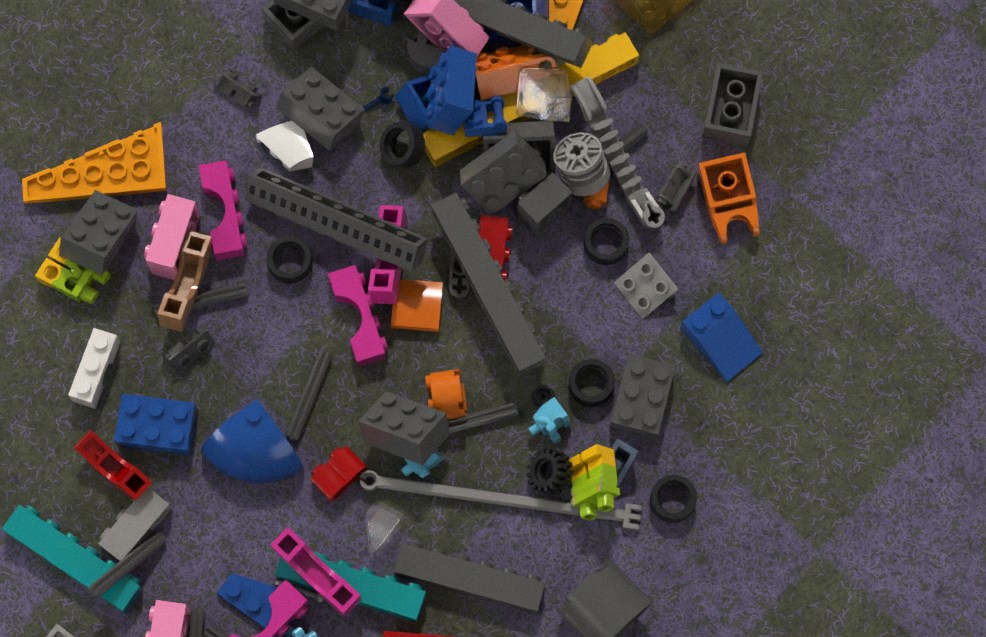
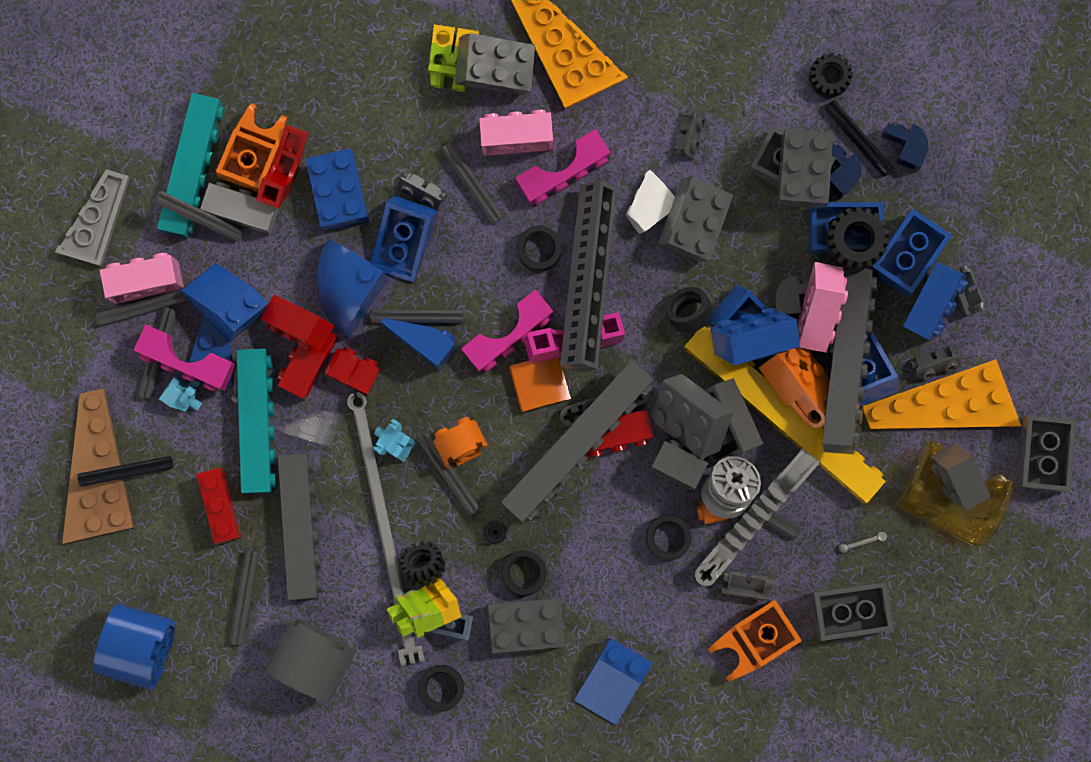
camera: 75 degrees right, 10 degrees up
(80, 486) = (250, 143): none -> orange brick
(89, 376) = (359, 112): white arch -> none
(192, 266) = (495, 162): medium nougat arch -> none
(220, 570) = (225, 301): none -> blue slope
(227, 378) = (403, 237): none -> blue slope
(271, 505) = (296, 323): none -> red brick
(311, 513) = (305, 368): none -> red brick
(315, 572) = (253, 374): dark pink arch -> none
(340, 390) = (426, 341): none -> blue slope
(381, 99) = (729, 270): clear blue hand -> none
(404, 427) = (411, 415): dark grey brick -> none
(477, 122) = (729, 374): blue plate -> none
(544, 94) = (786, 426): clear slope -> none
(549, 419) = (473, 546): medium azure piece -> none
(646, 285) = (638, 591): light grey hinge -> none
(673, 59) = (881, 536): none -> light grey hinge

